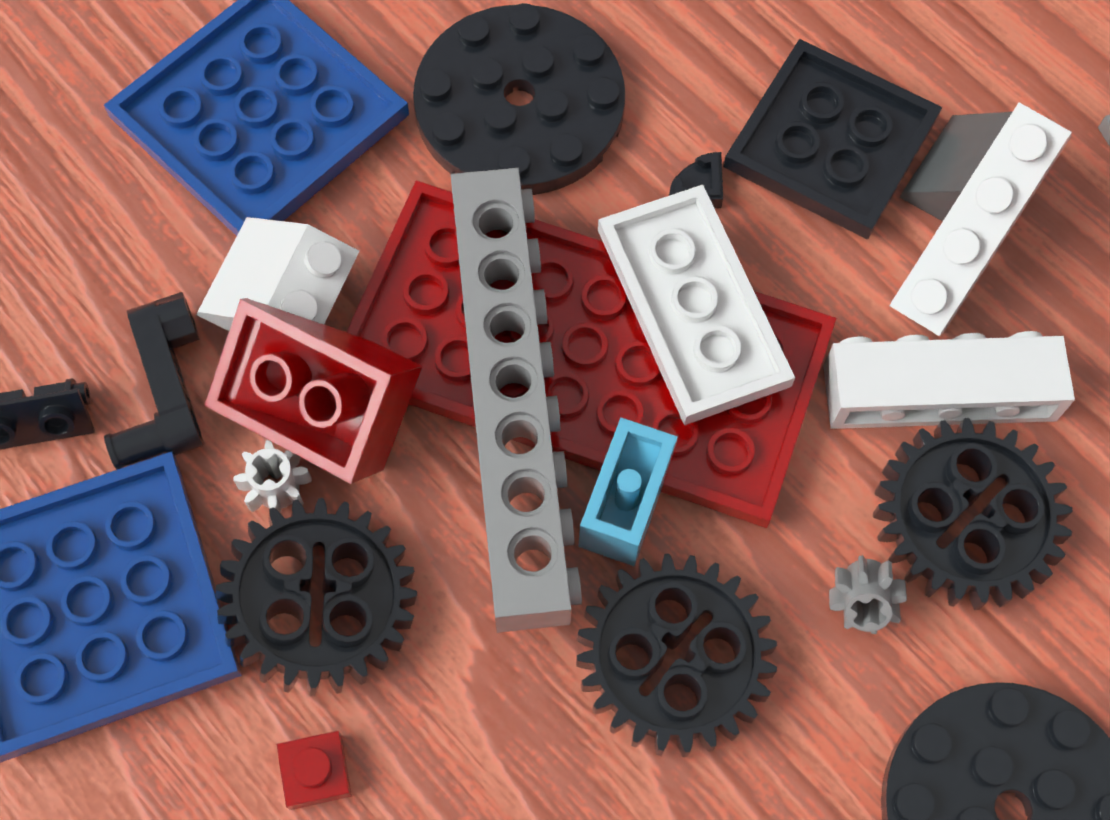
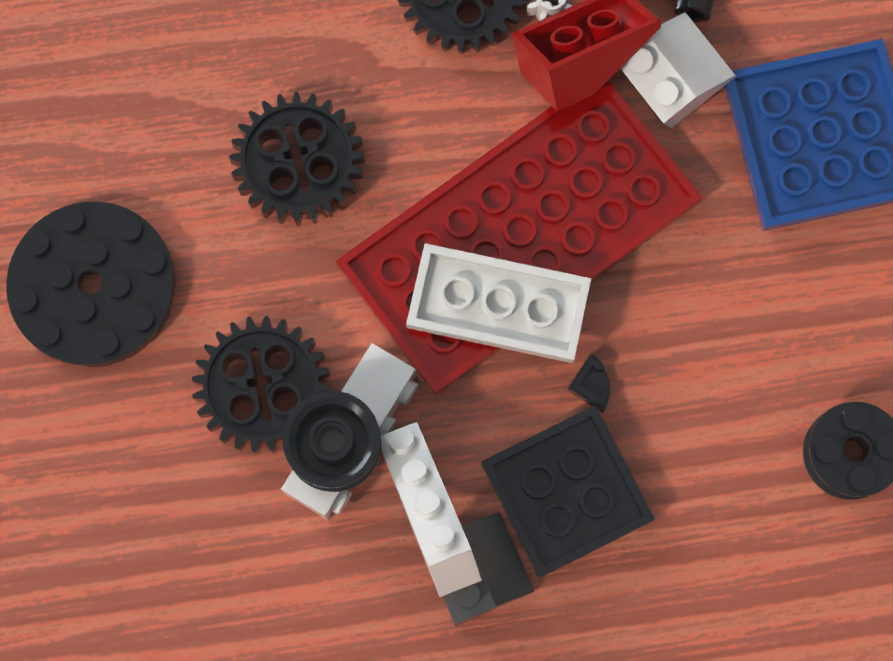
camera: 125 degrees right, 10 degrees up
(520, 597) = (386, 80): light grey brick -> none
(541, 52) = (724, 352): black plate -> none
(626, 491) = (403, 182): medium azure slope -> none
(867, 595) = (255, 285): light grey gear -> none
(1015, 329) = (327, 413): none -> black wheel

